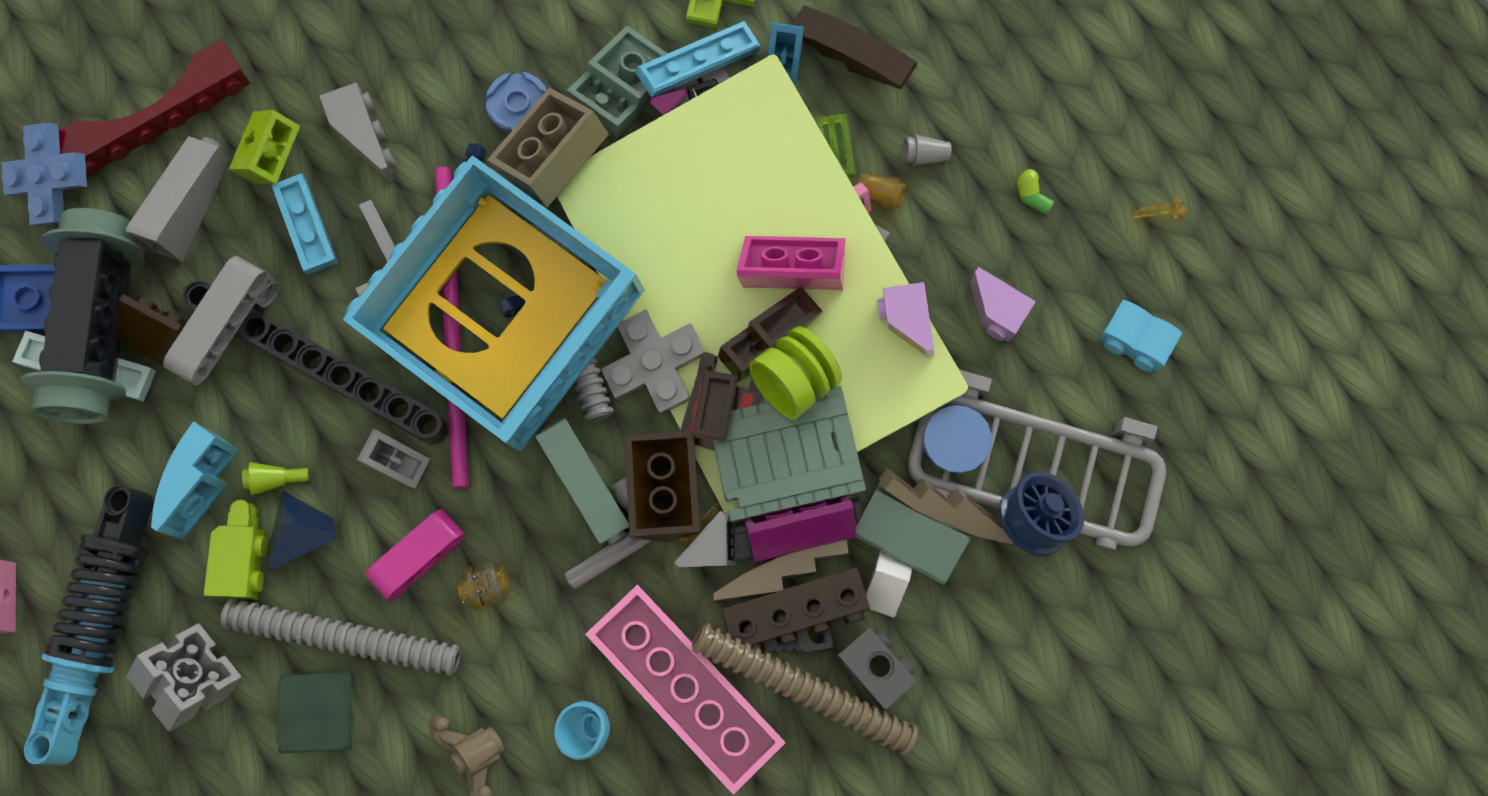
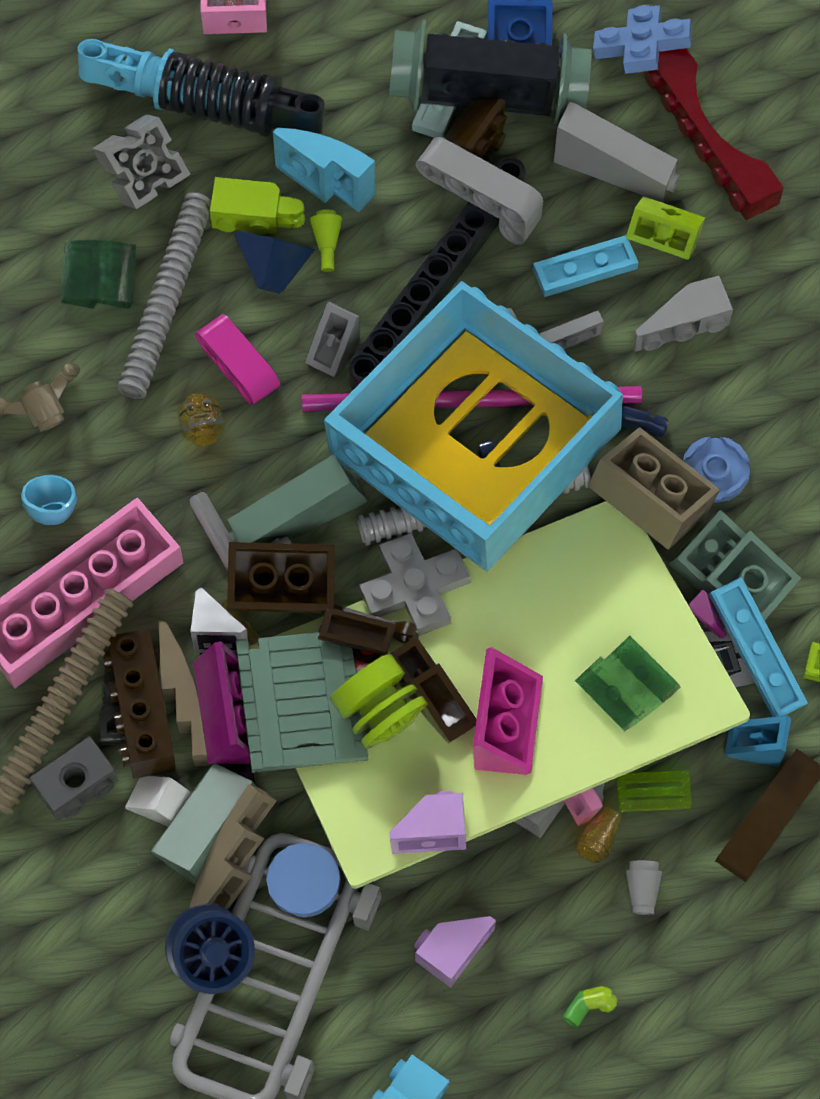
camera: 95 degrees right, 10 degrees down
(750, 159) = (627, 684): none -> clear green slope

